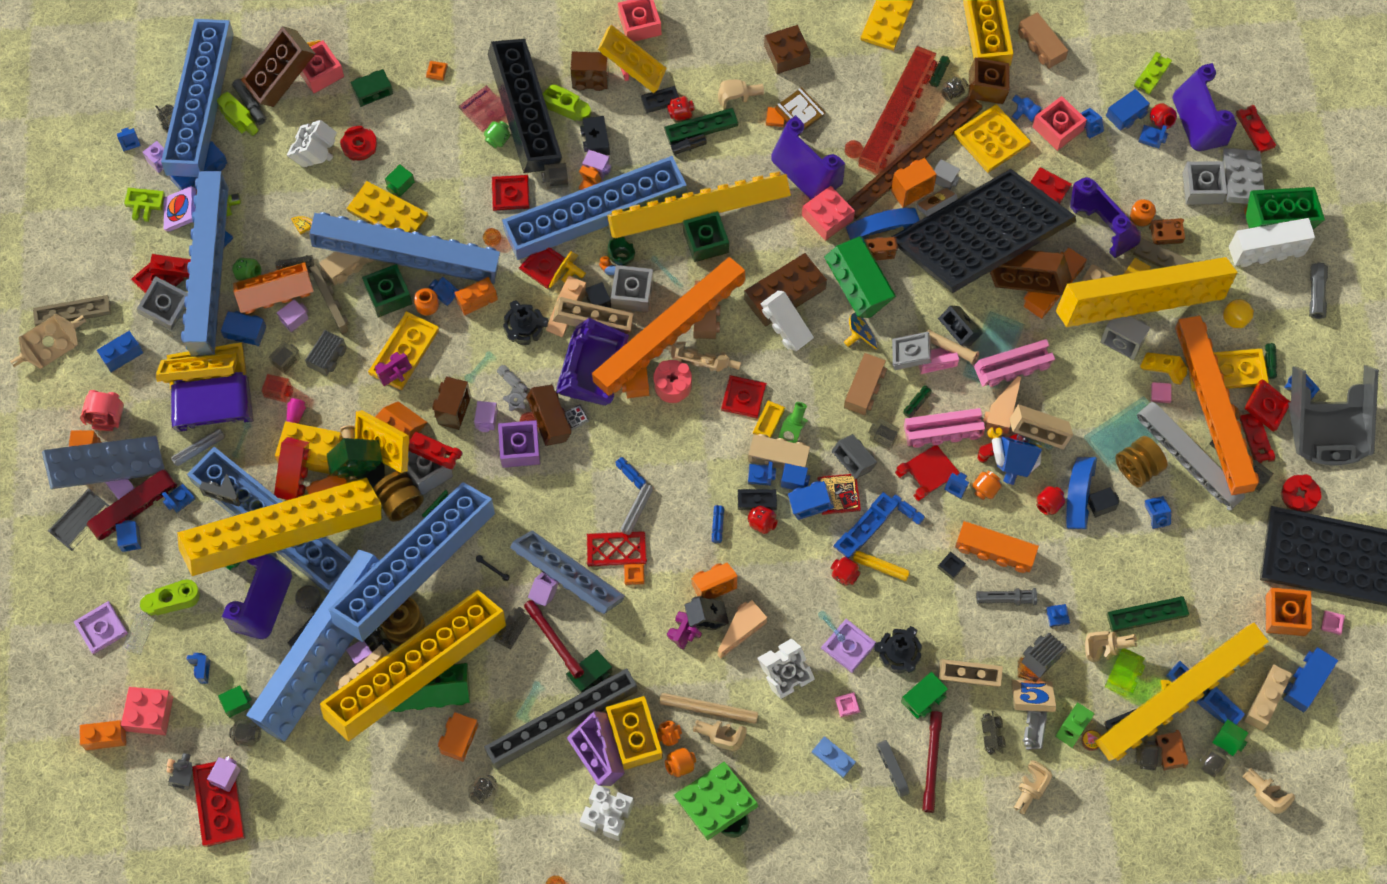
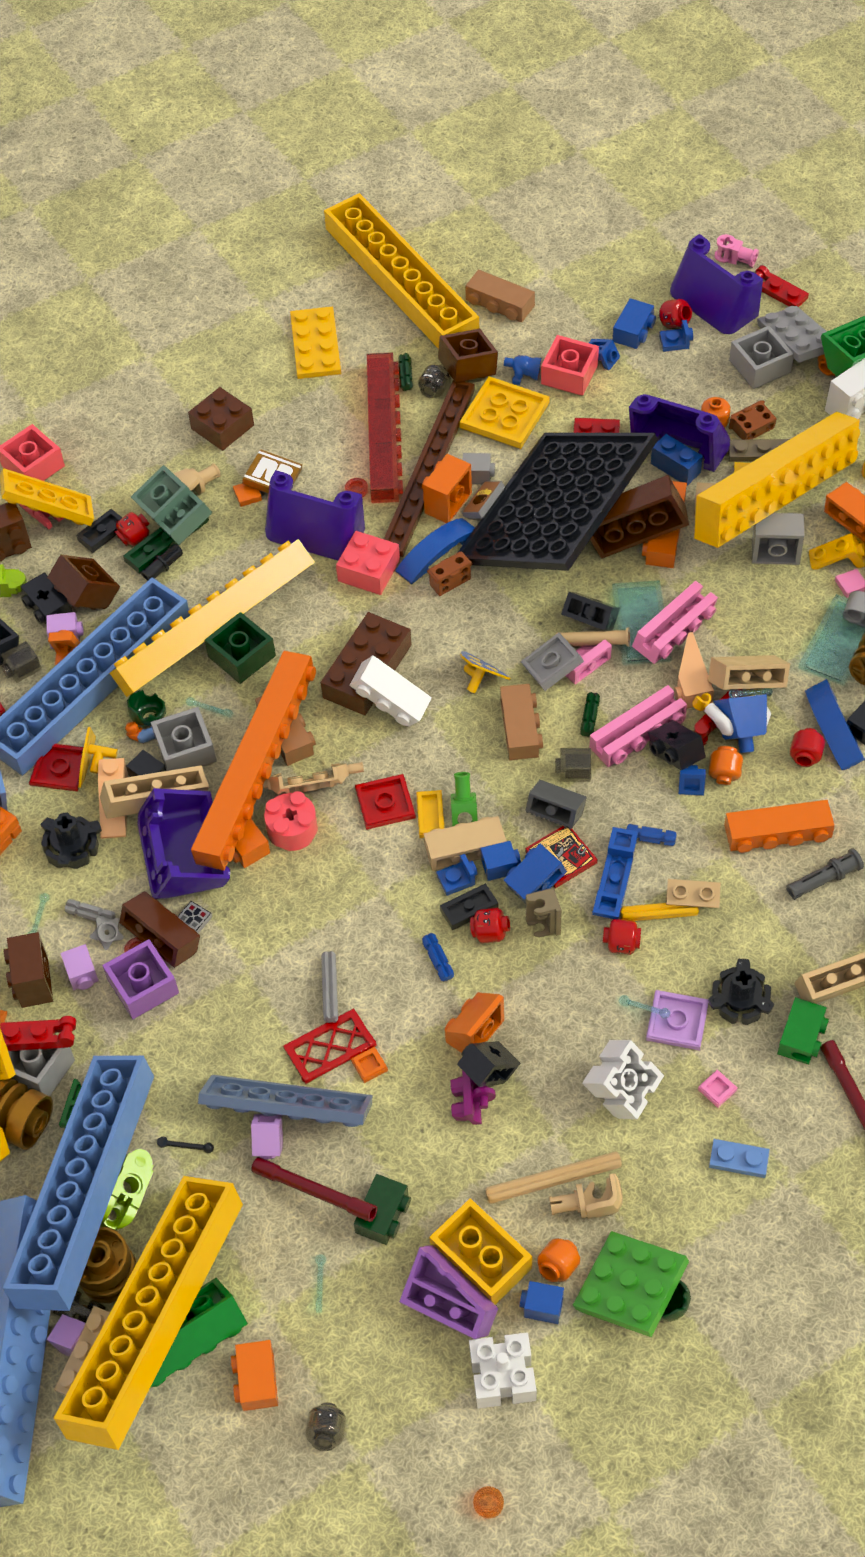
camera: 25 degrees left, 10 degrees down
(453, 571) = (137, 1172): none -> piece
(514, 626) = (253, 1197): clear smoke hinge -> none
(560, 719) = (376, 1285): dark grey brick -> none
(625, 136) = (83, 582): none -> reddish brown brick
(630, 472) = (297, 949): blue axle -> none
(655, 783) = (542, 1302): none -> blue brick
(669, 733) = (525, 1230): orange gear -> none
(714, 104) = (171, 504): none -> sand green slope
(745, 623) = (540, 1052): light nougat slope -> none
(801, 525) = (544, 909): none -> dark tan hinge
(860, 277) = (446, 610): green slope -> none
(890, 762) = (813, 1129): dark grey beam -> none
(909, 566) = (693, 893): none -> tan hinge
(929, 469) = (649, 780): red flag -> none
(951, 565) = (740, 871): black plate -> none
(959, 455) = (676, 745): none -> black brick
(1092, 236) = (676, 459): none -> blue brick
(1153, 73) = (636, 280): lime plate -> none
(1241, 84) = (734, 251): none -> bright pink connector

